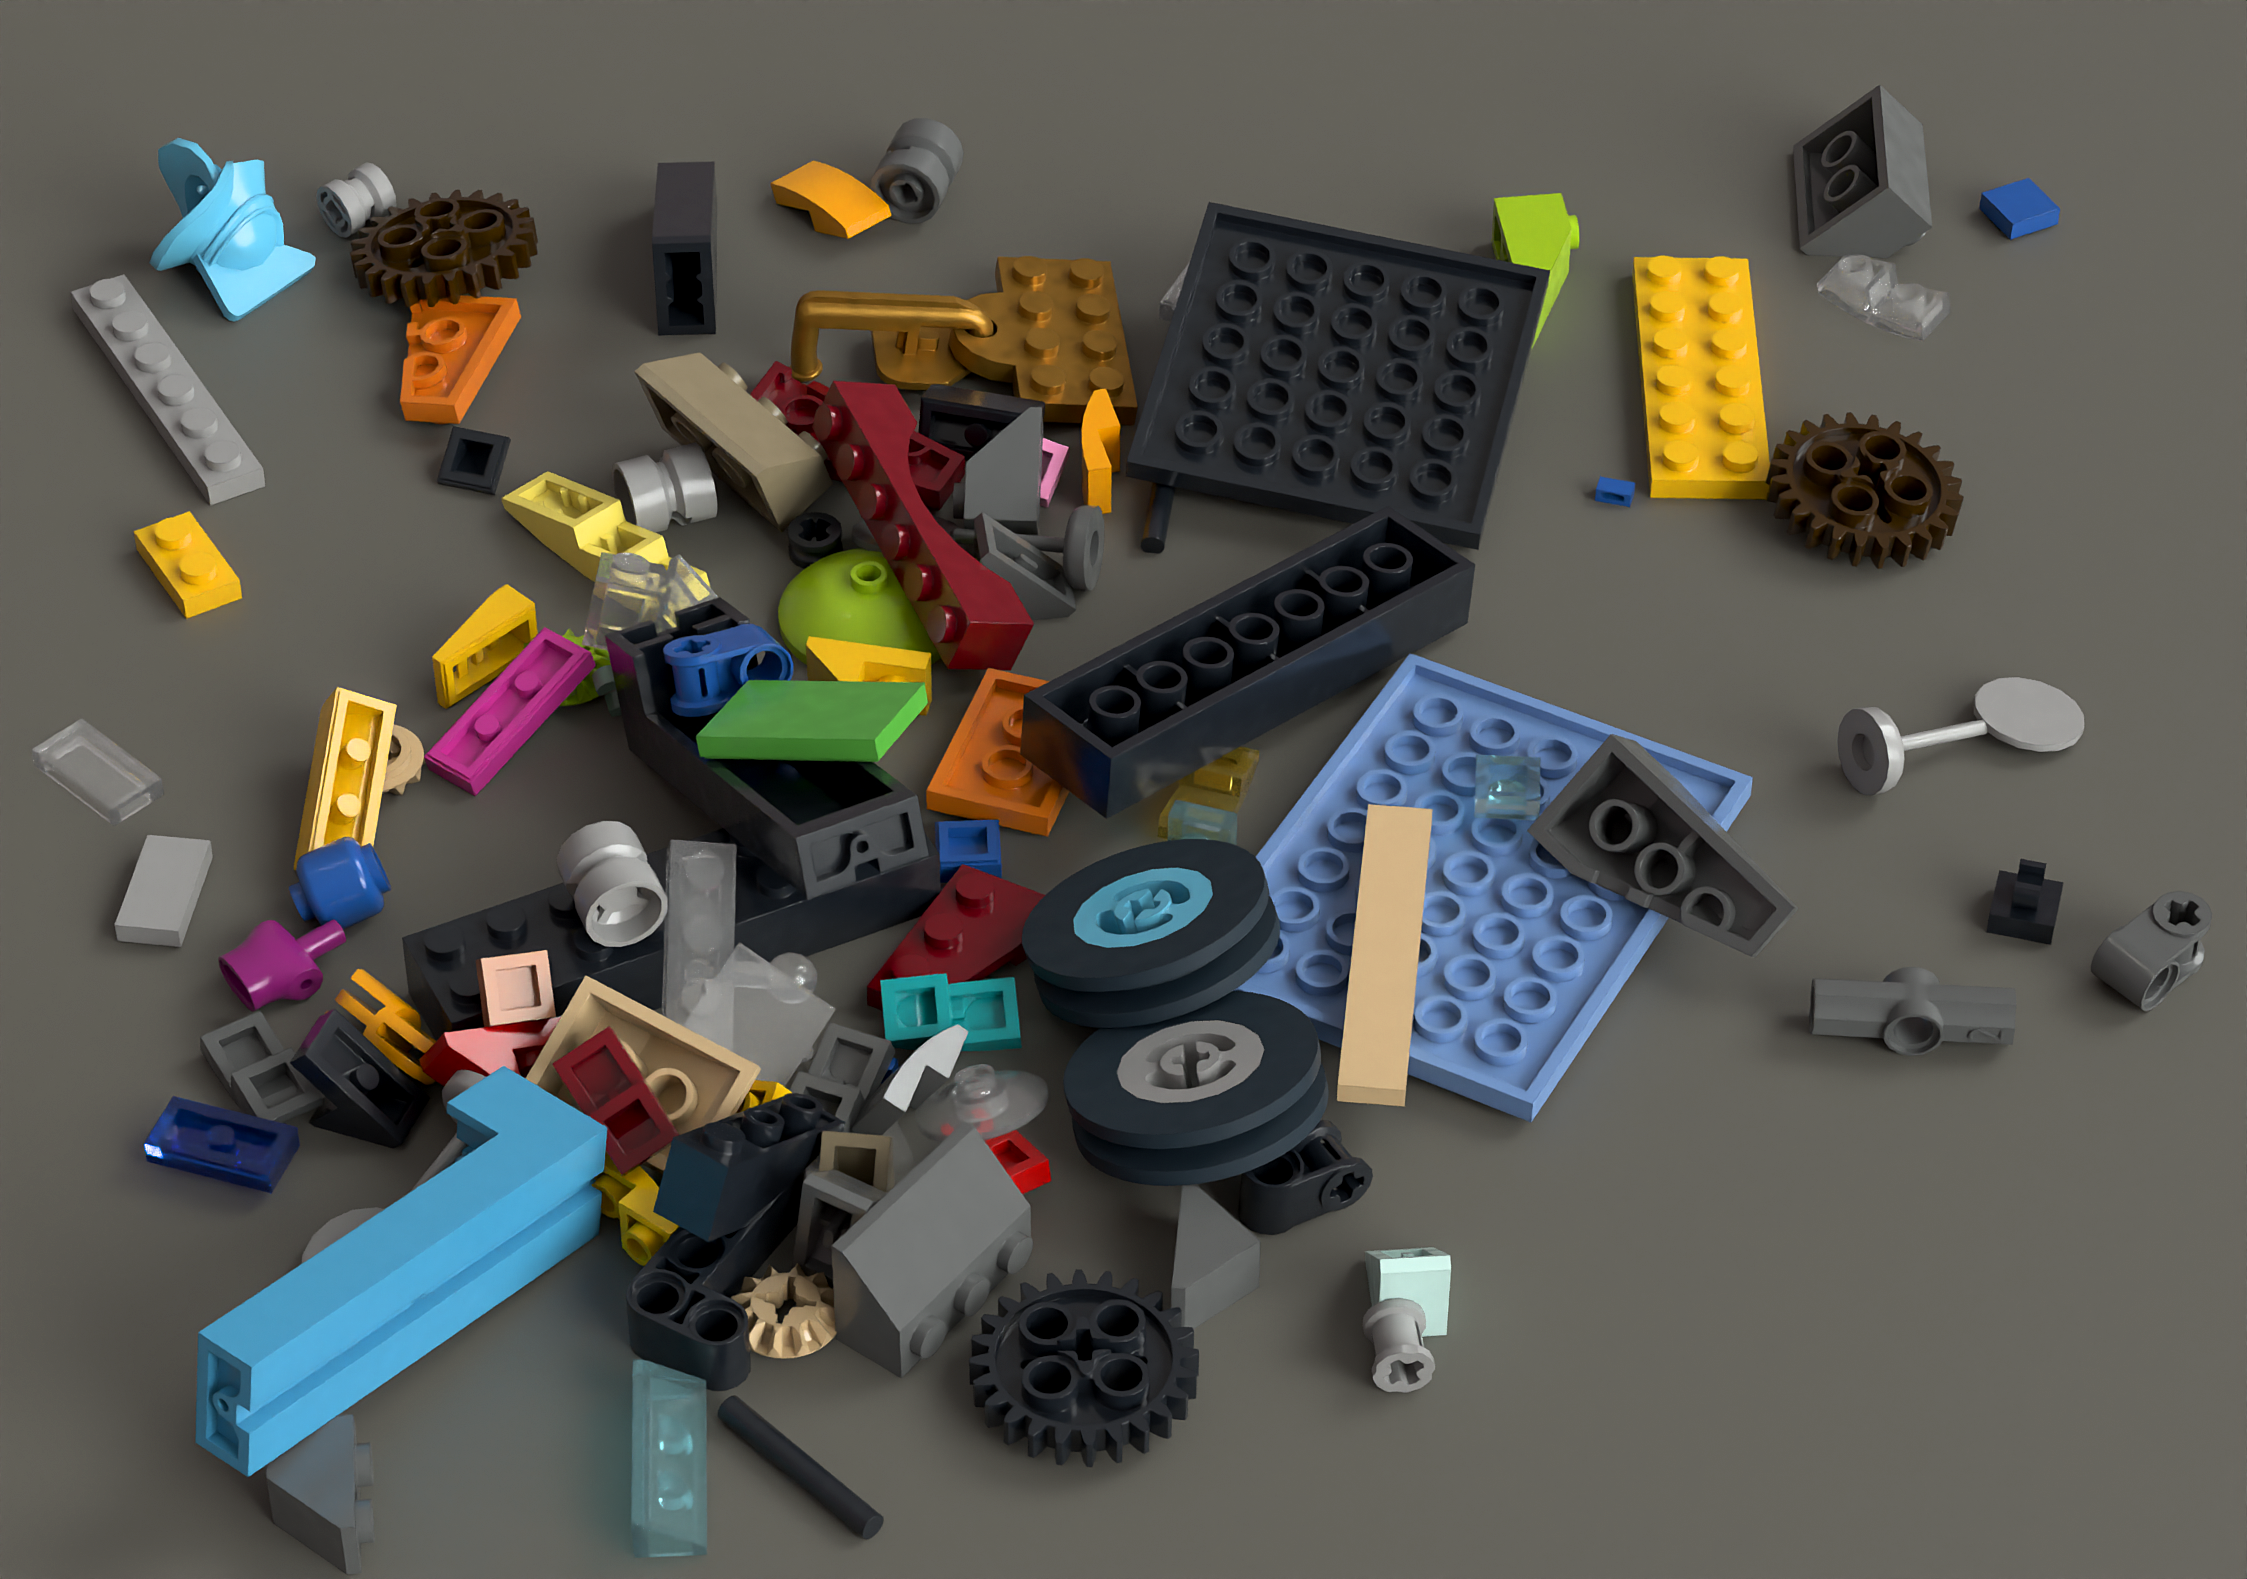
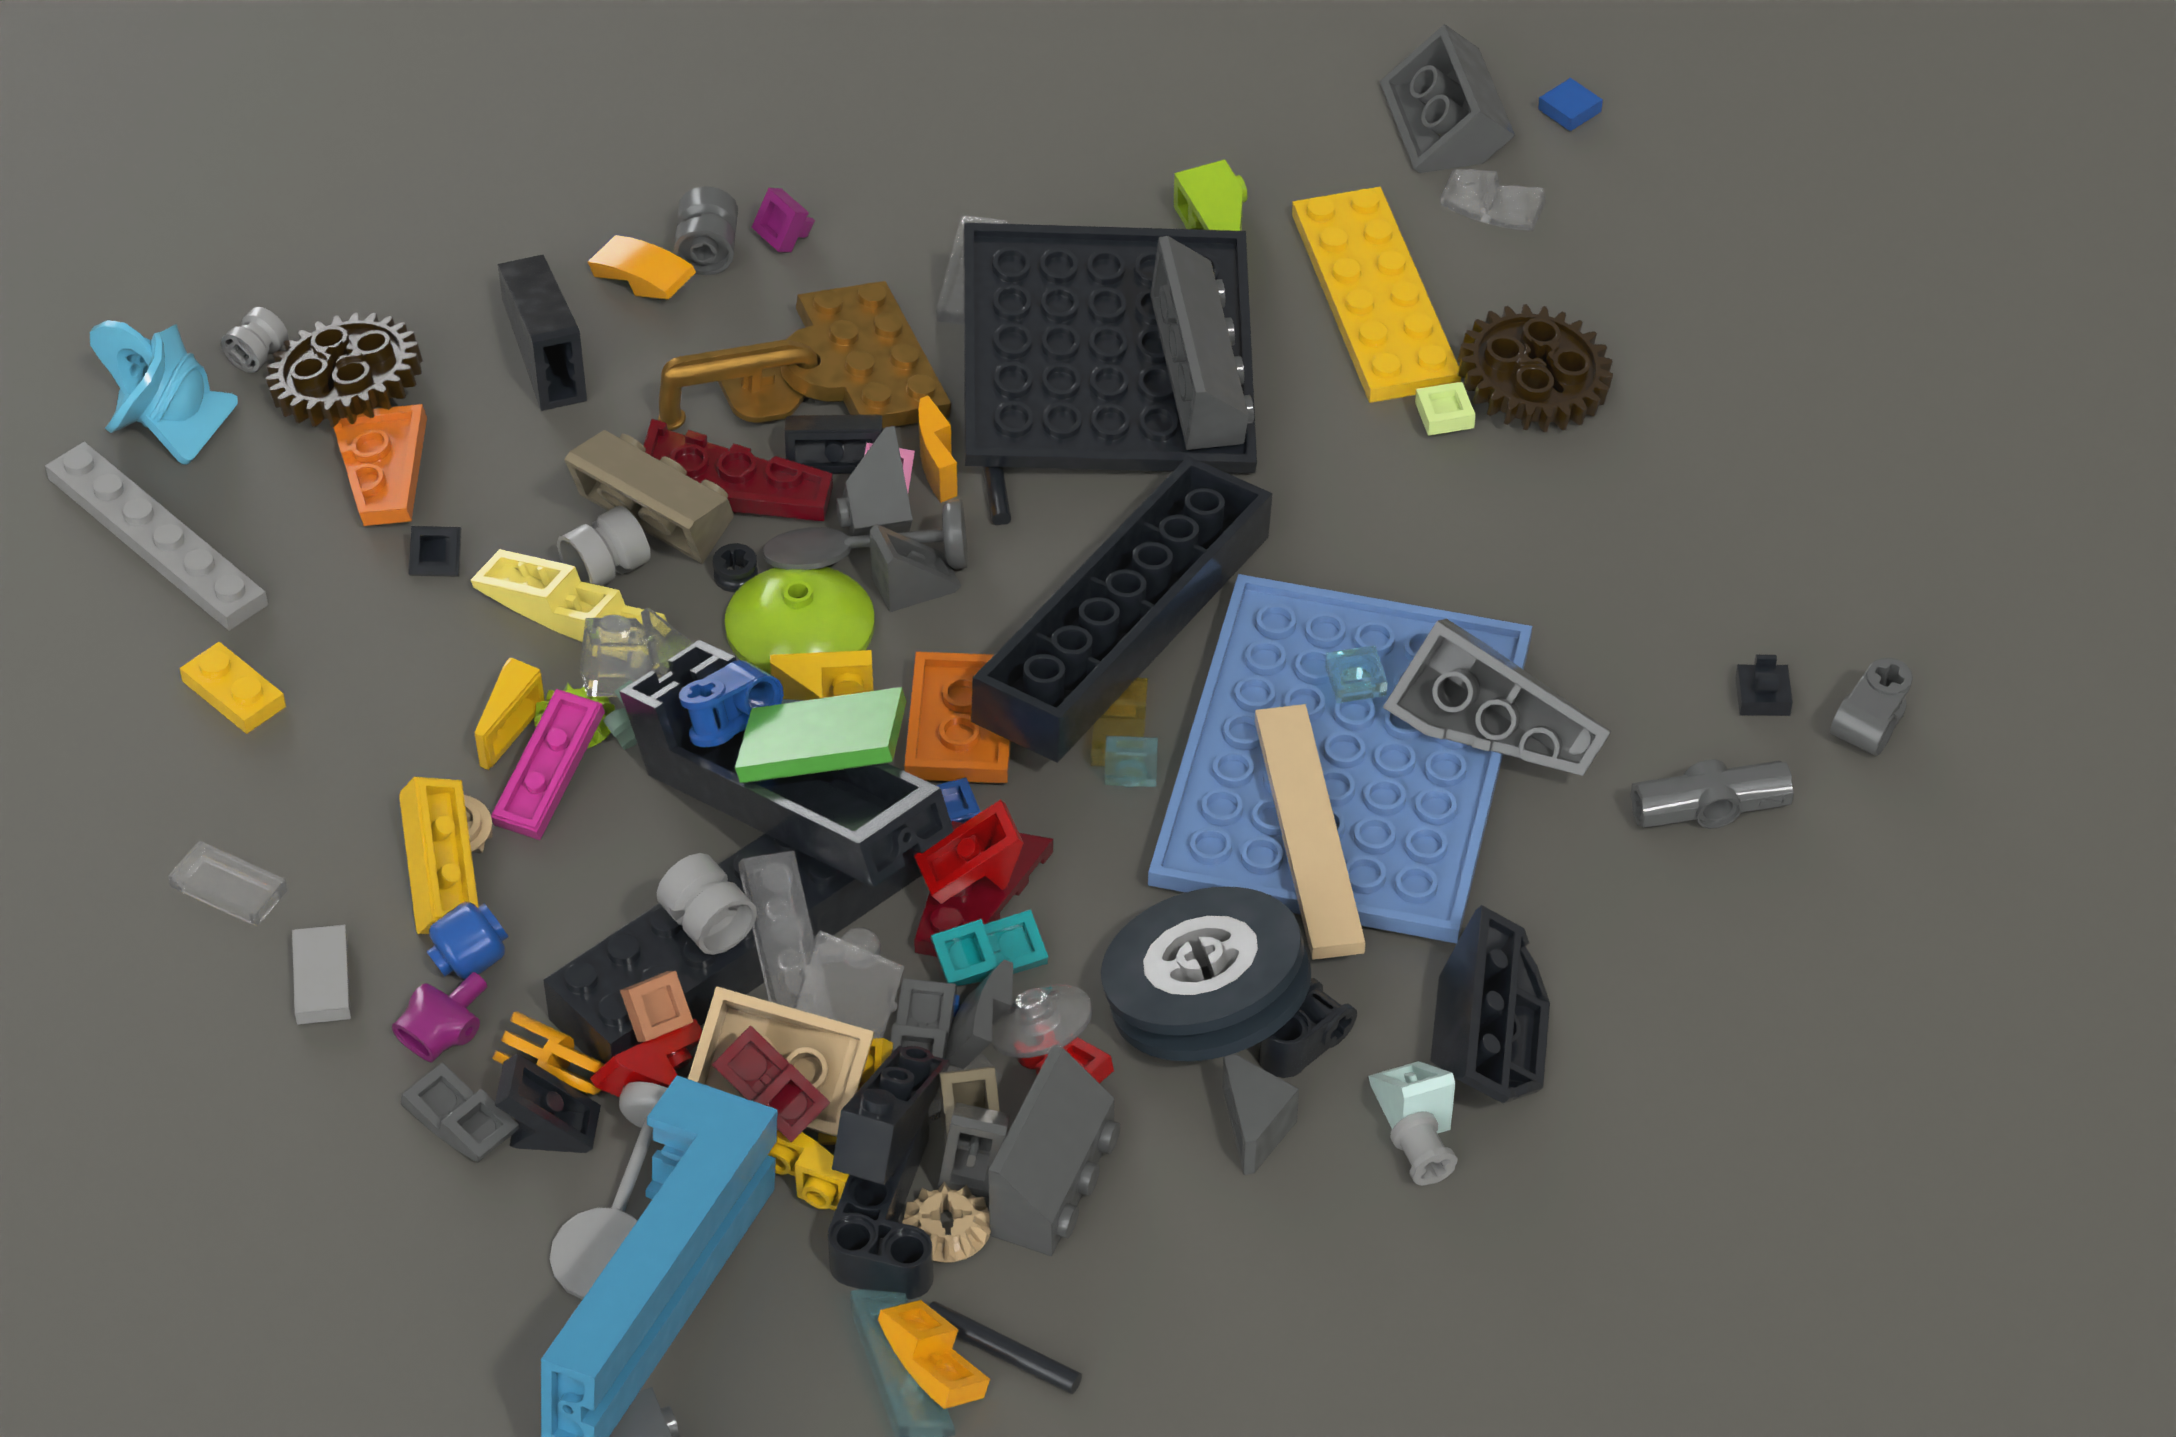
camera: 15 degrees left, 5 degrees up
(222, 1144) = (453, 1181): clear blue plate -> none
(703, 1449) = (925, 1346): none -> light orange slope
(960, 602) = (878, 601): dark red arch -> none
(966, 891) = (976, 849): none -> red slope
(1013, 176) = (782, 220): none -> magenta tile
(1084, 1368) = (1194, 1219): black gear -> none
(1151, 933) = (1128, 852): black wheel -> none
(1445, 386) = (1199, 348): none -> dark grey slope
(1541, 1204) = (1492, 1011): none -> black wedge
(1615, 491) = (1342, 403): blue piece -> none
(1736, 517) = (1445, 408): none -> yellowish green plate
(2011, 709) = (1700, 527): light grey piece -> none

